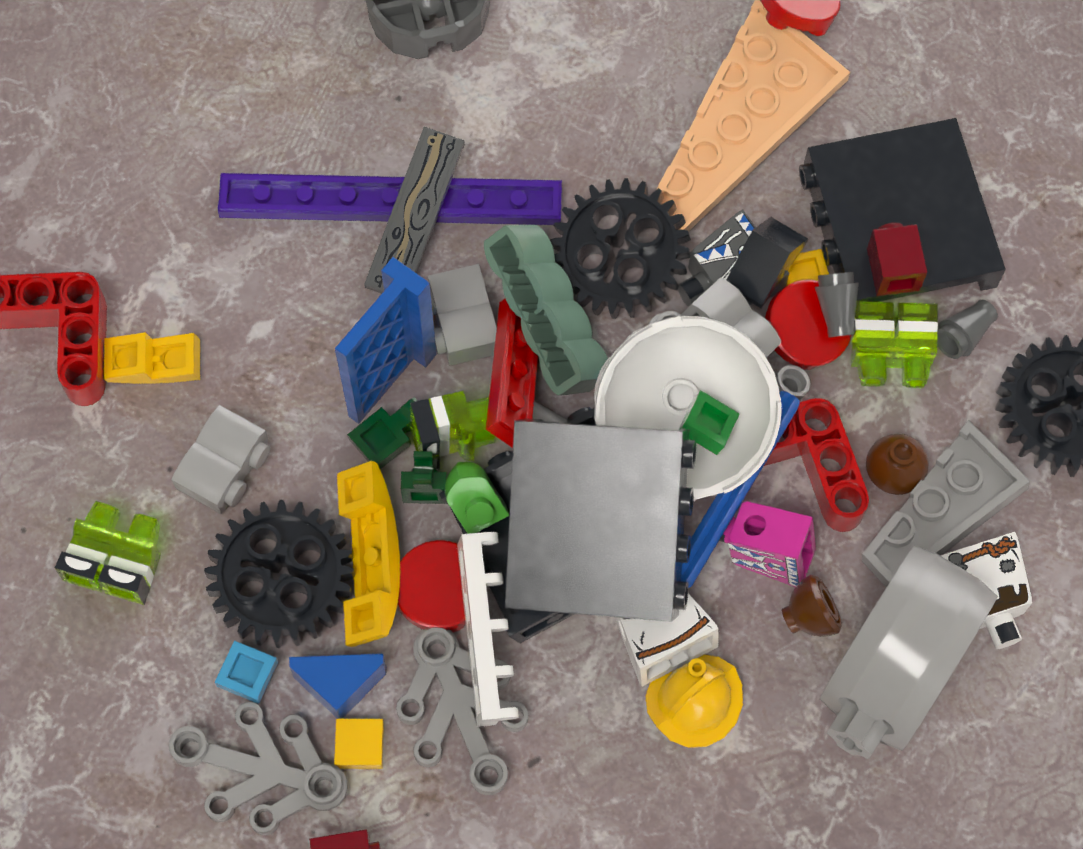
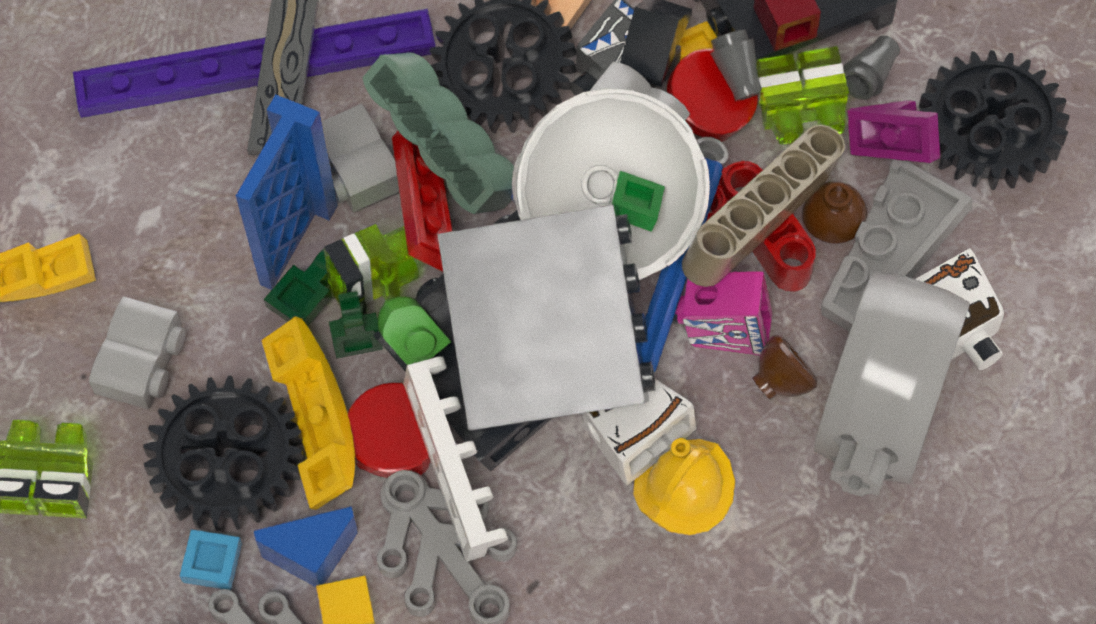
camera: 10 degrees left, 5 degrees down
(848, 439) = (762, 205): none -> dark tan beam
(971, 400) = (894, 132): none -> magenta slope

